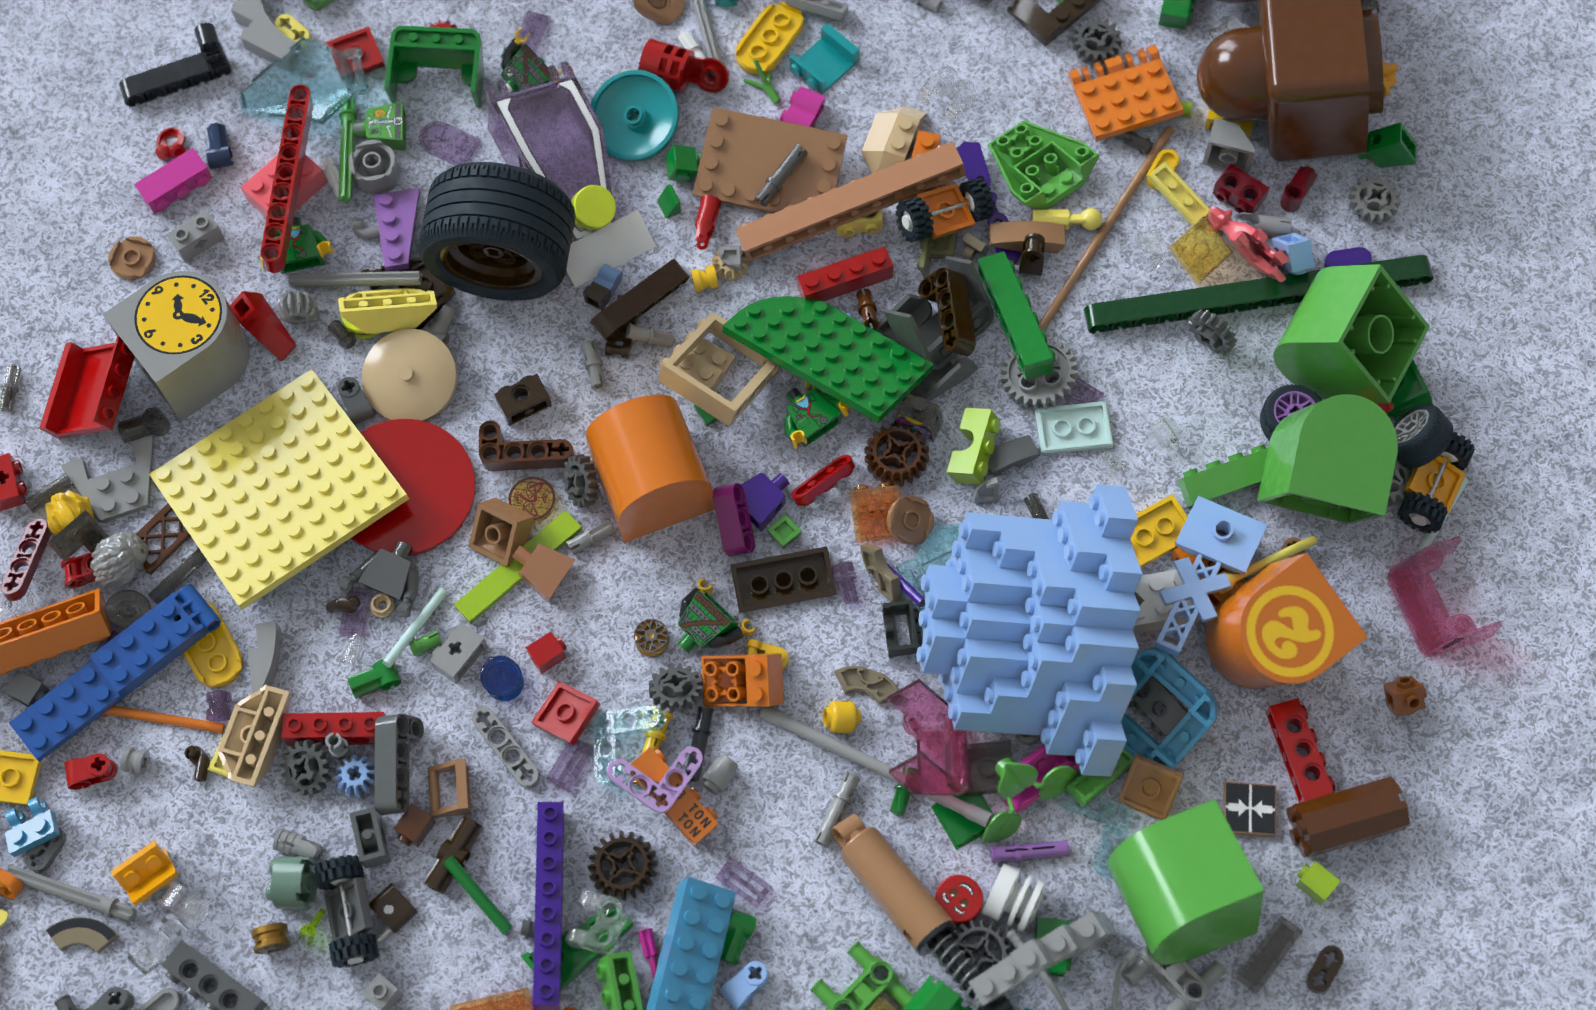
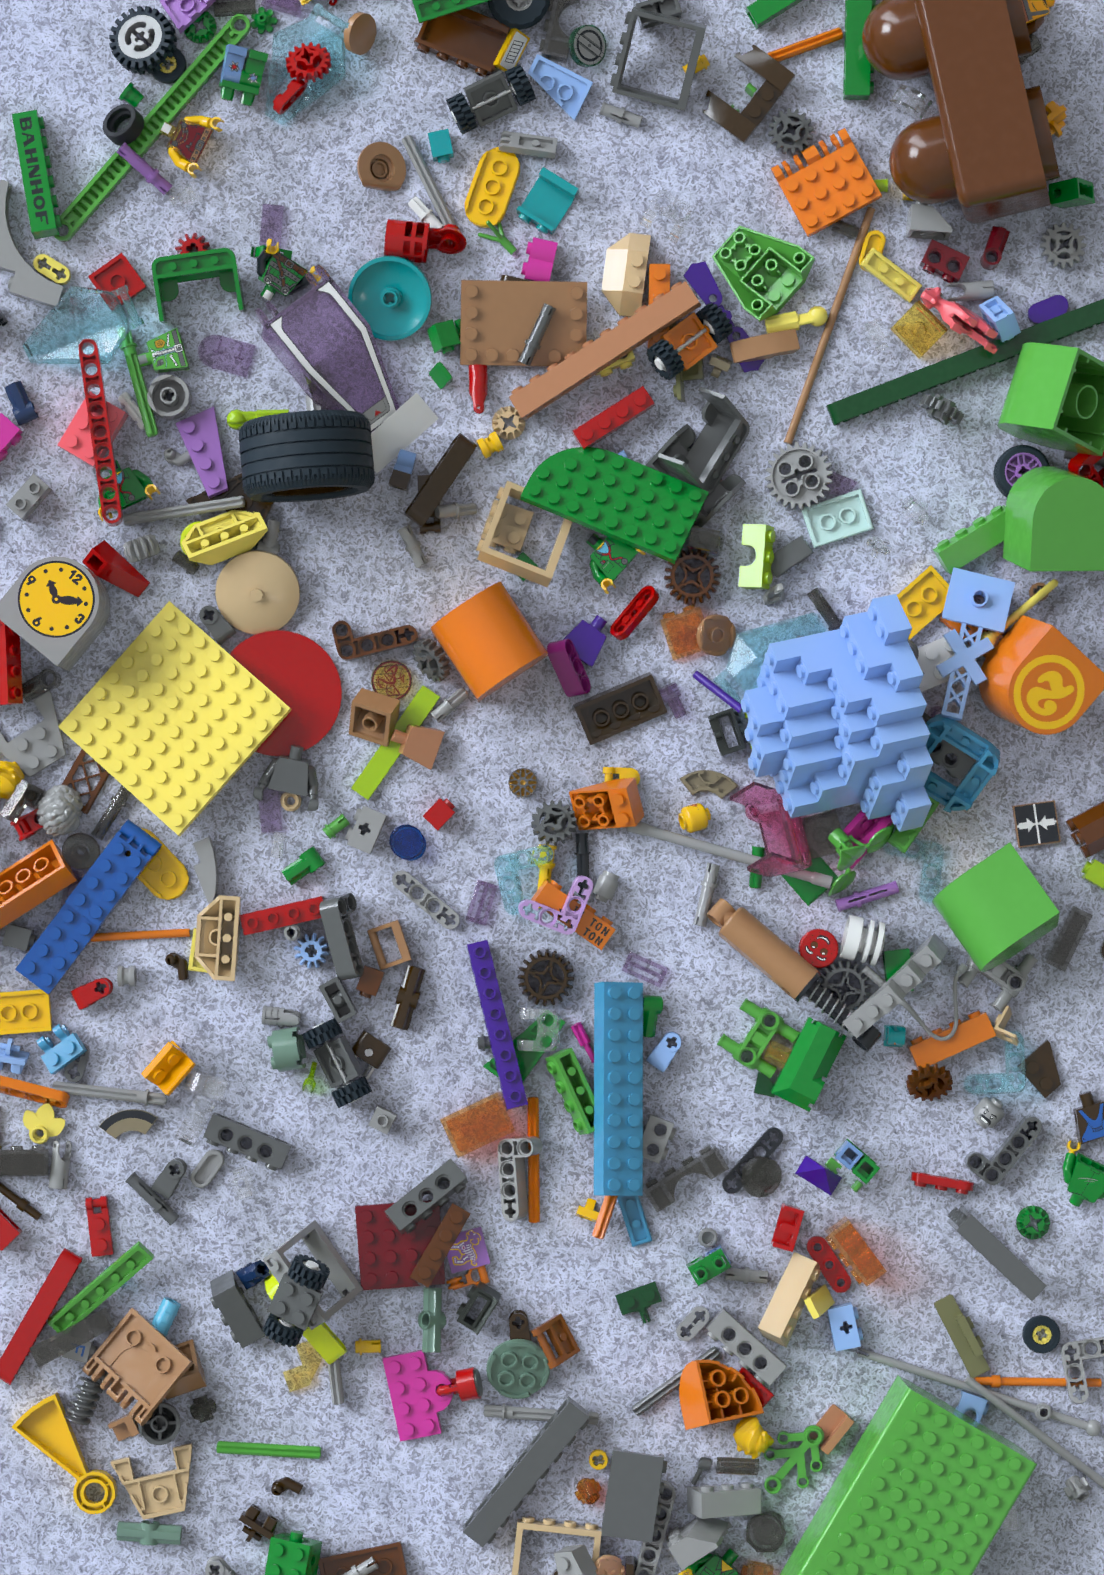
camera: 15 degrees left, 20 degrees up
(218, 705) = (181, 916): clear purple wheel -> none
(270, 938) = (282, 1096): pearl gold wheel -> none
(307, 767) = (271, 955): dark grey gear -> none
(343, 605) = (257, 810): dark brown arm -> none
(414, 627) = (324, 816): light aqua bar -> none
(477, 894) = (436, 1026): green piece -> none
(517, 410) = (372, 586): dark brown brick -> none
(566, 713) = (469, 862): plate -> none
(593, 207) = (378, 402): neon yellow head -> none
(707, 621) = (566, 760): torso -> none
(731, 256) = (509, 420): light grey tile -> none
(784, 531) = (611, 665): bright green plate -> none
(867, 308) = (639, 446): reddish brown pin -> none
(875, 563) = (694, 678): dark tan tile -> none
(950, 293) = (716, 439): dark brown beam -> none
(1015, 315) = (769, 429): green brick -> none
(1032, 255) = (773, 366): dark brown piece -> none
(1150, 787) = (954, 825): medium nougat tile -> none
(1294, 713) = (1079, 800): red brick -> none

